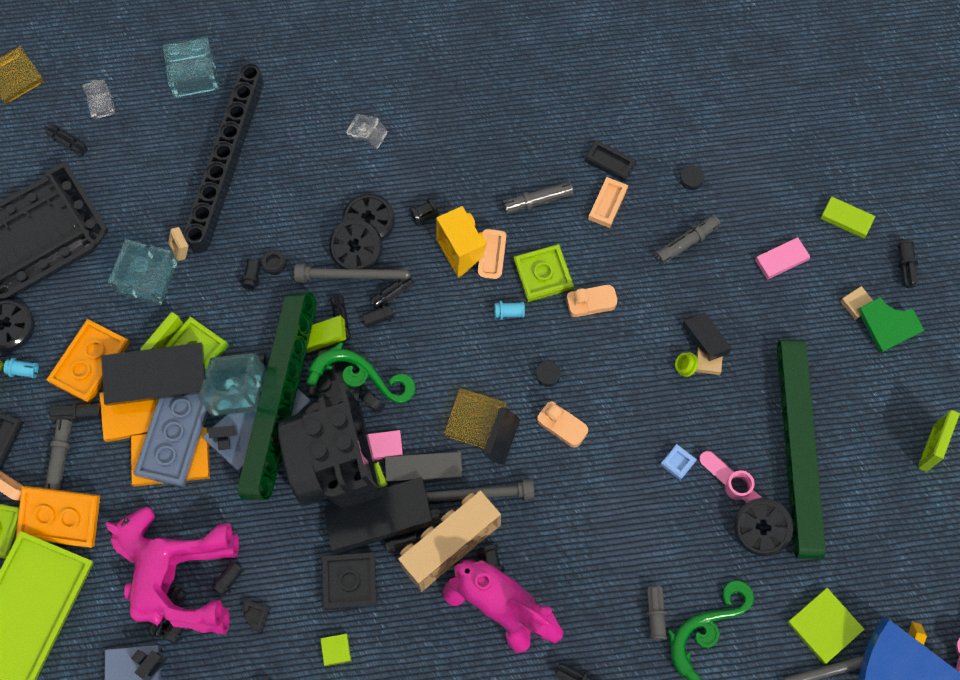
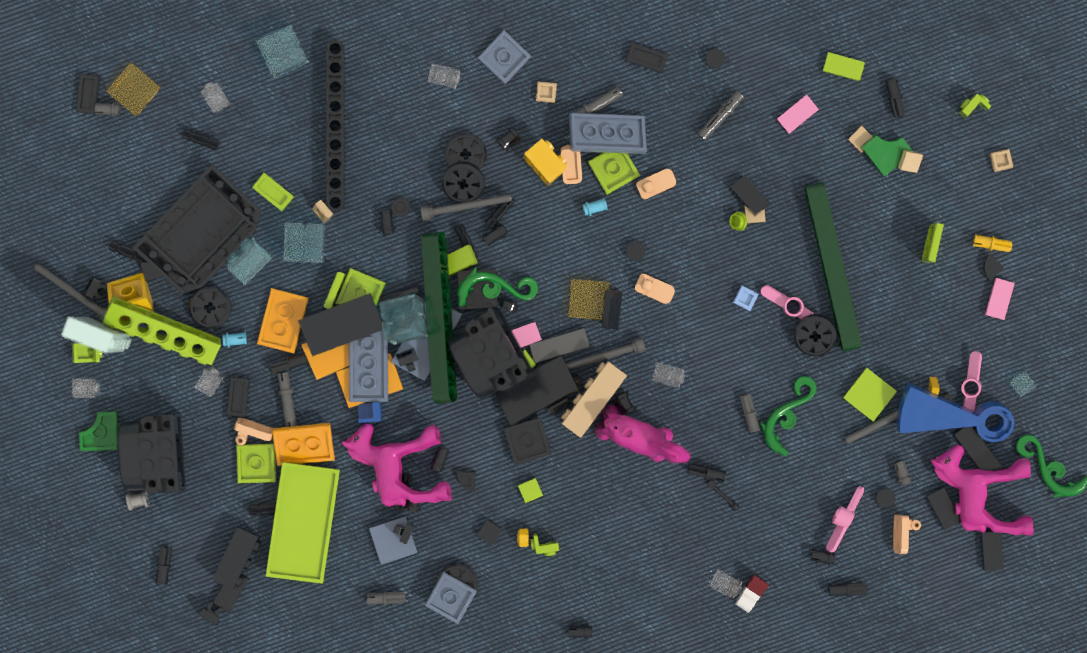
camera: 15 degrees left, 20 degrees up
(67, 274) = (248, 260): none -> clear light blue piece
(129, 213) = (273, 192): none -> lime tile
(157, 497) = (370, 412): none -> blue panel
(443, 127) = (504, 57): none -> sand blue tile
(482, 173) = (546, 92): none -> tan tile
(544, 226) = (607, 133): none -> sand blue tile
(557, 536) = (668, 375): none -> clear bracket
(608, 202) = (652, 96): light nougat tile -> none
(919, 339) = (910, 161): none -> tan tile

